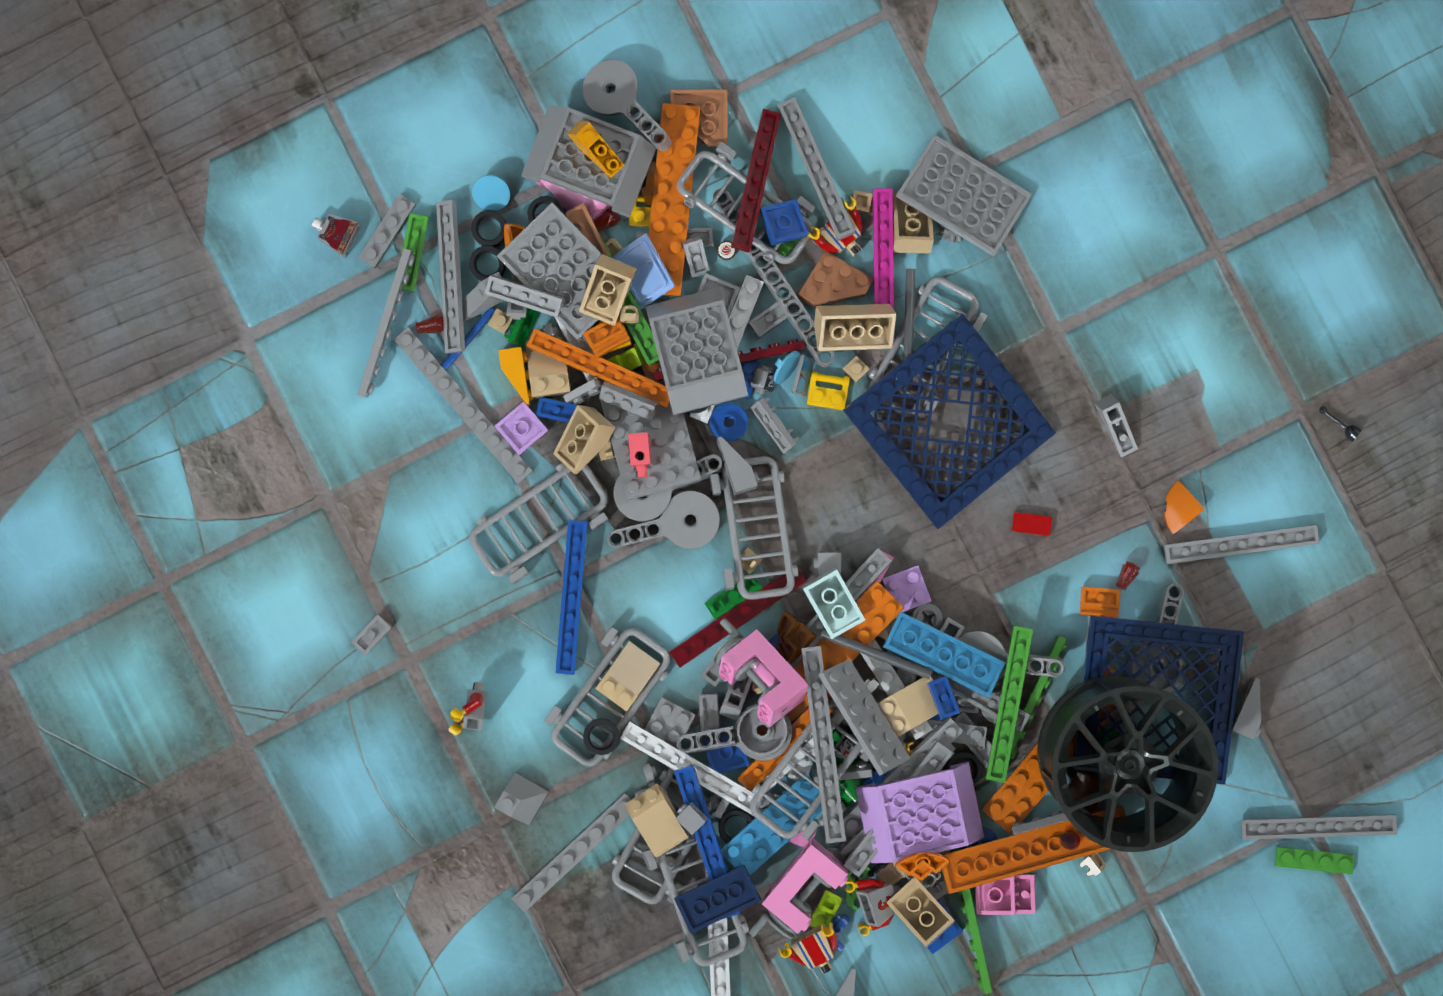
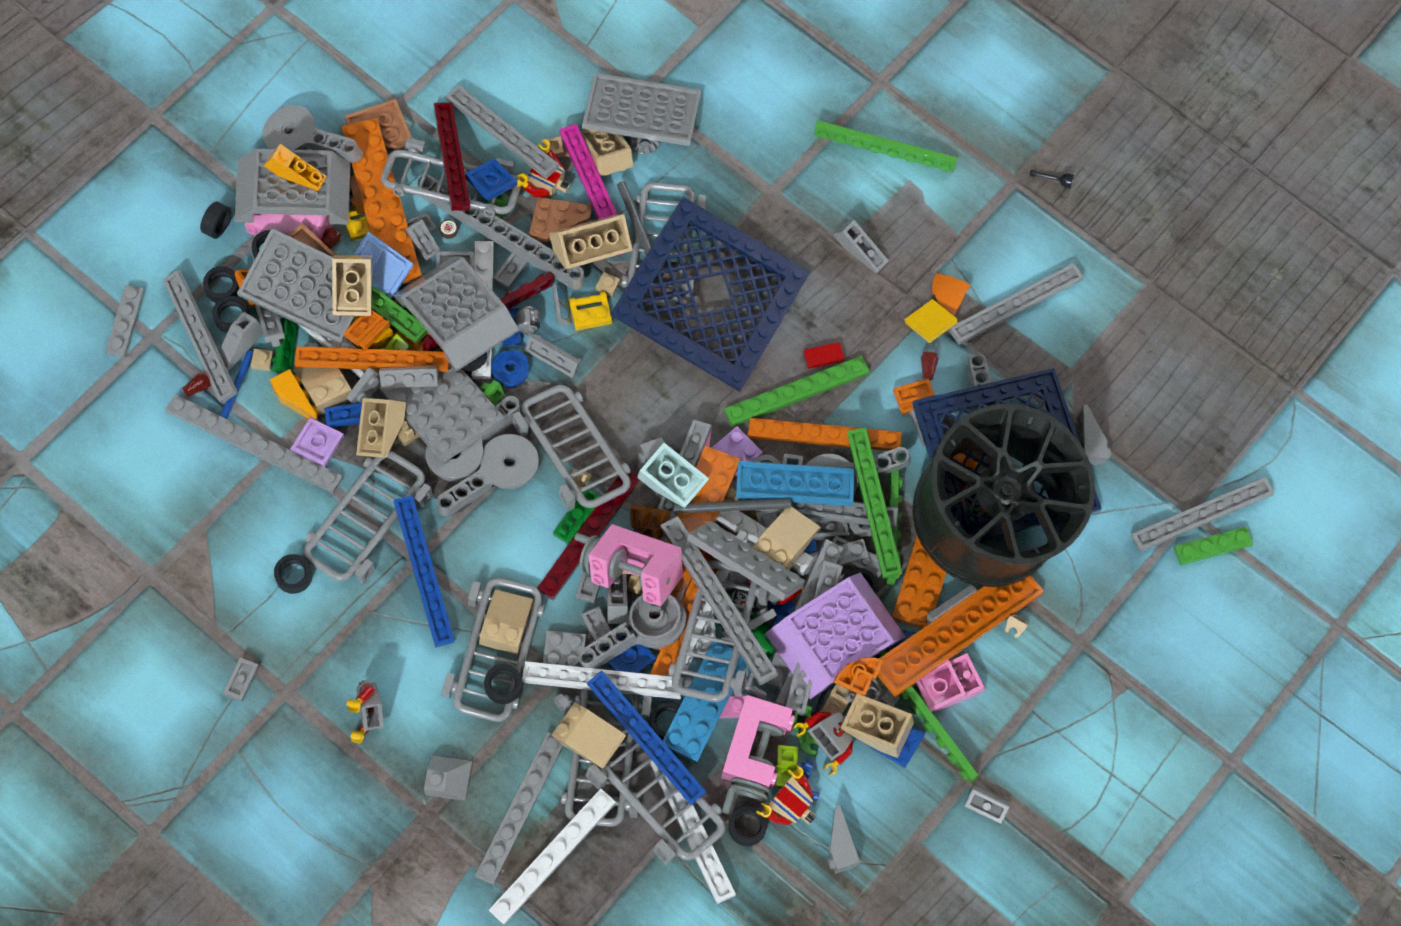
camera: 30 degrees left, 20 degrees down
(337, 233) = (77, 337): torso -> none
(389, 315) = (153, 402): light grey plate -> none
(414, 241) = (155, 330): bright green plate -> none
(467, 548) = (293, 559): none -> black tyre
(491, 193) = (211, 252): medium azure piece -> none
(506, 160) = (215, 220): none -> black tyre
(524, 295) = (276, 317): light grey plate -> none
(585, 910) = (552, 856): none -> white plate
(629, 317) = (381, 303): tan tile -> none
(640, 444) = (438, 409): coral torso -> none
(691, 818) = (621, 716): light grey brick -> none
(701, 442) = (493, 391): none -> bright green tile
(717, 899) = (678, 784): dark blue plate -> none
(738, 470) = (534, 399): light grey slope -> none
(755, 942) = (747, 841): none -> black tyre
(786, 366) = (543, 300): medium azure piece -> none
(943, 697) = (811, 517): blue plate -> none
(990, 550) = (796, 391): none -> bright green plate
(994, 608) = (819, 434): none -> orange plate
(1069, 840) = (985, 607): clear red tile -> none
(1149, 530) = (931, 321): none -> yellow tile
(1181, 322) = (885, 146): none -> bright green plate

